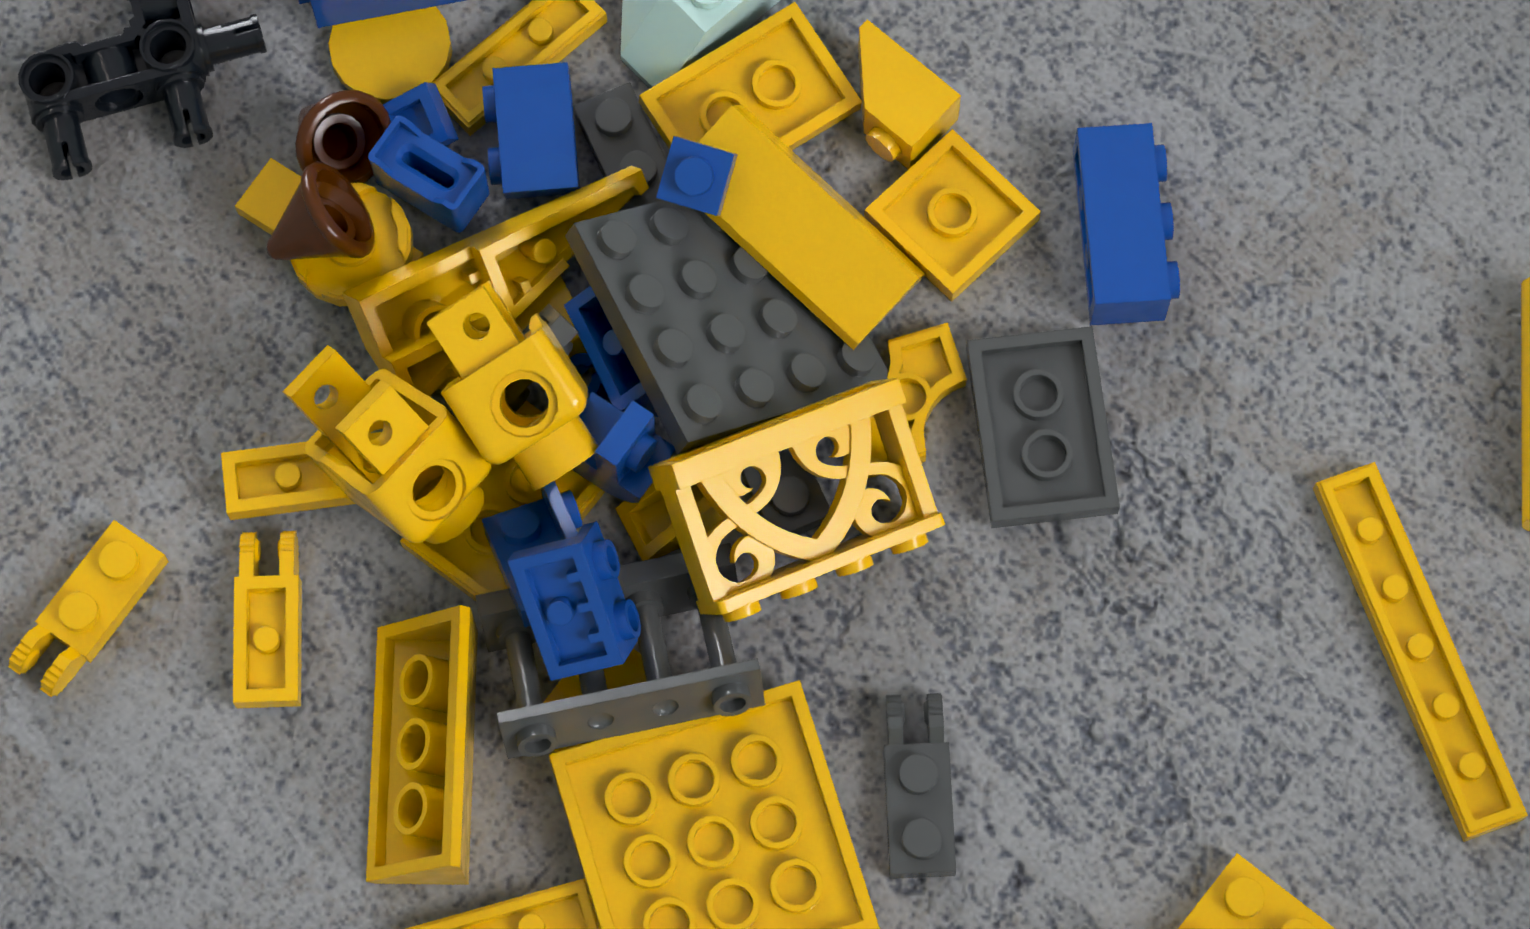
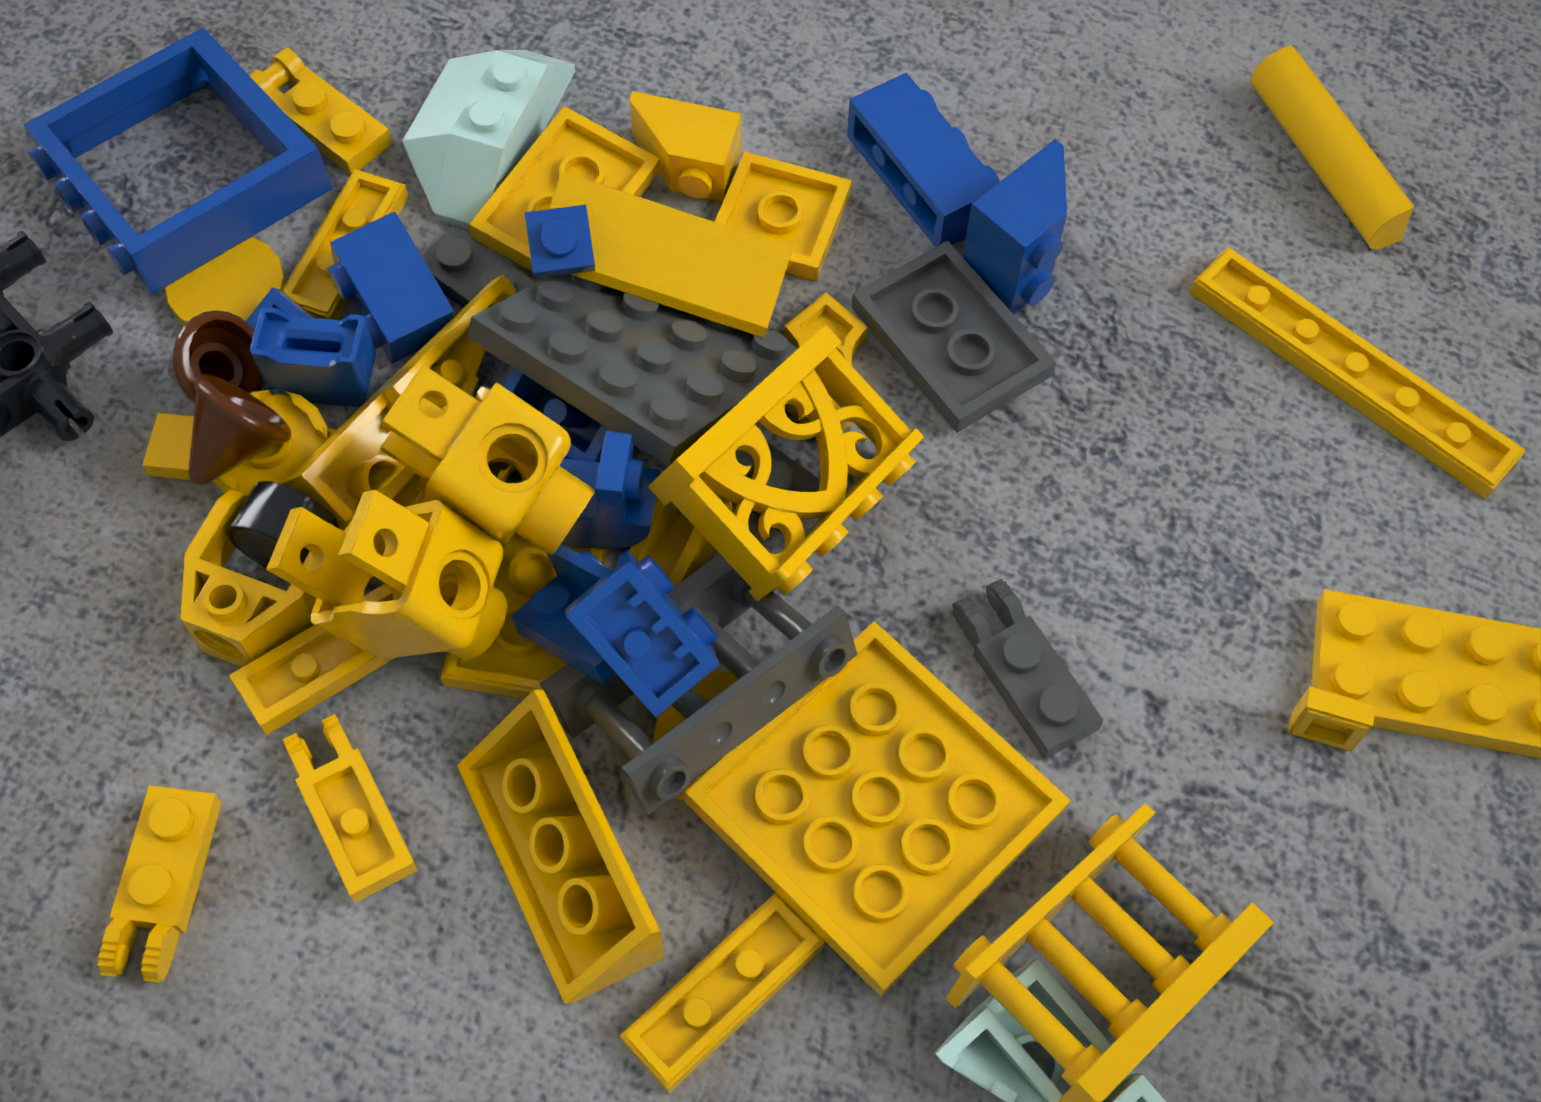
camera: 30 degrees left, 10 degrees down
(246, 392) = (229, 611): none -> yellow piece
(1157, 355) = (1019, 229): none -> blue slope

